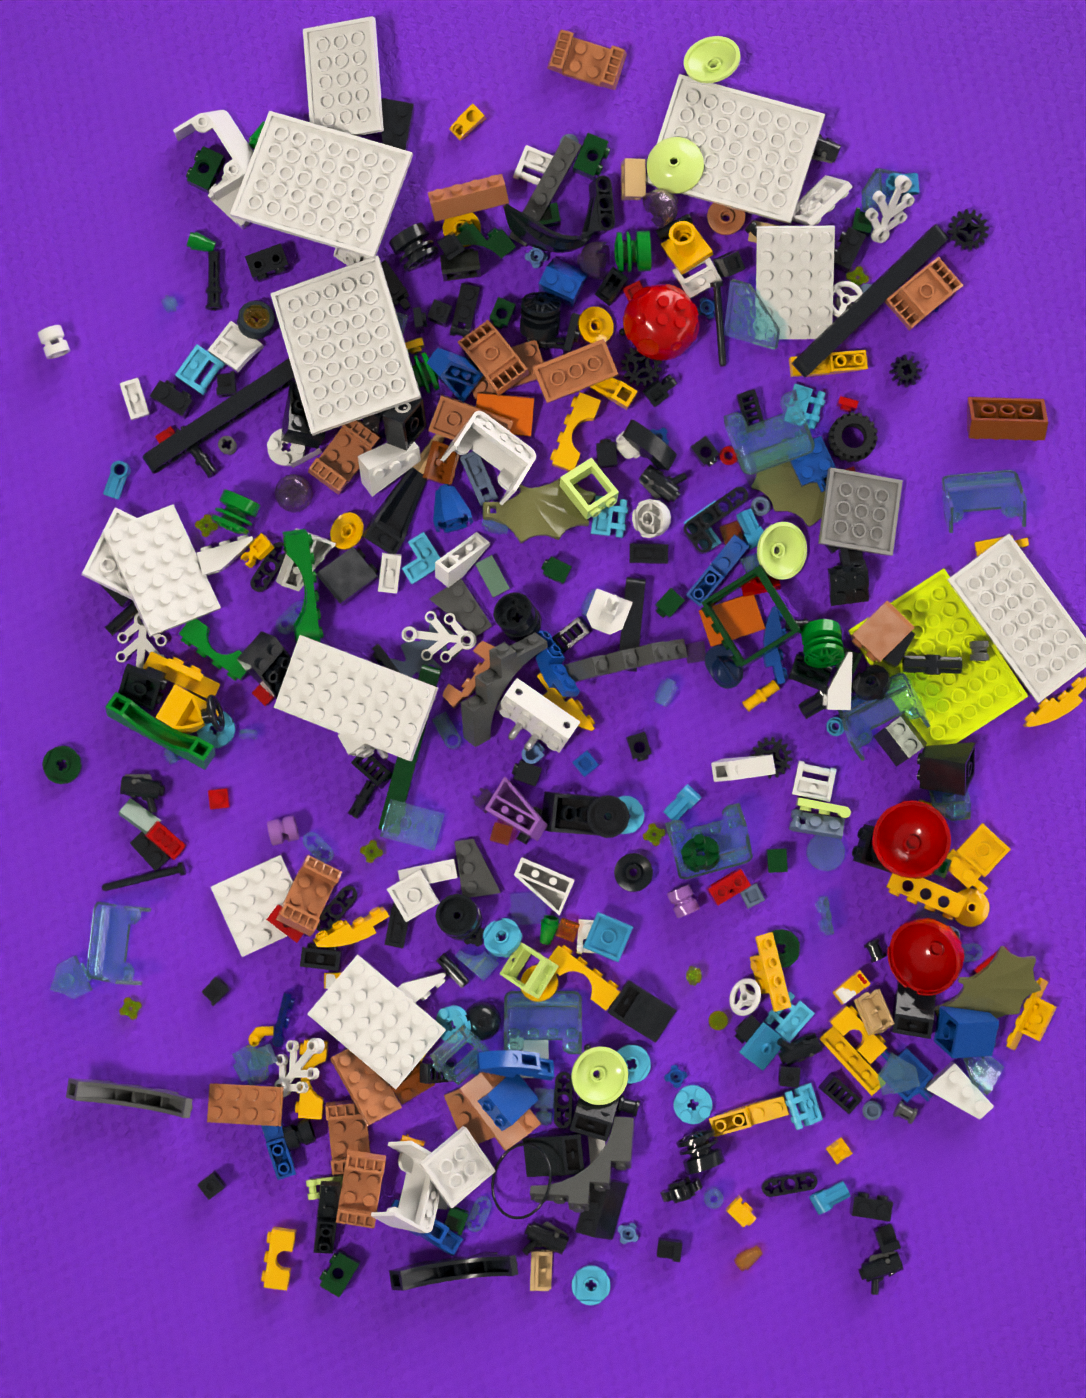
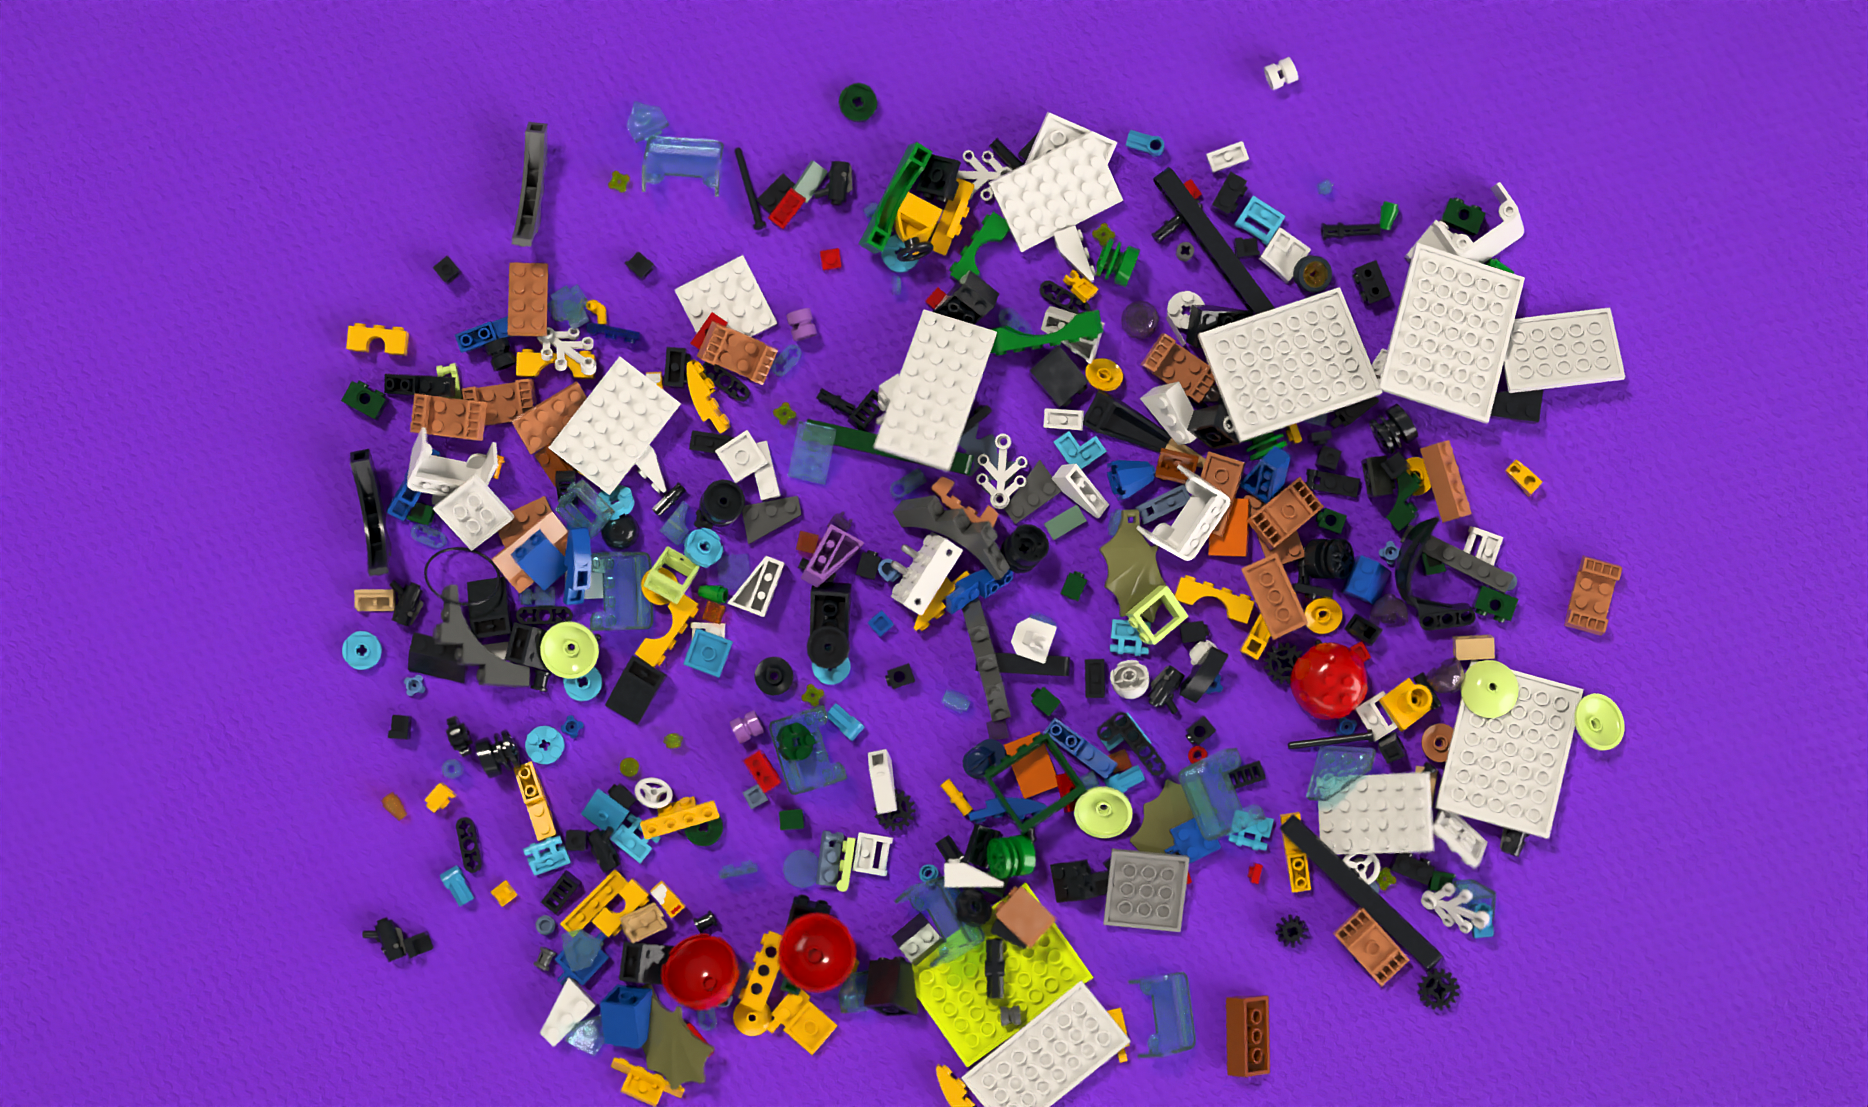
camera: 85 degrees right, 0 degrees up
(582, 623) = (1017, 617): black slope -> none
(633, 251) = (1399, 650): green wheel -> none
(658, 391) = (1258, 680): black plate -> none
(764, 501) = (1154, 789): sand blue plate -> none
(859, 422) = (1237, 886): black tyre -> none
(871, 1207) = (449, 927): black brick -> none

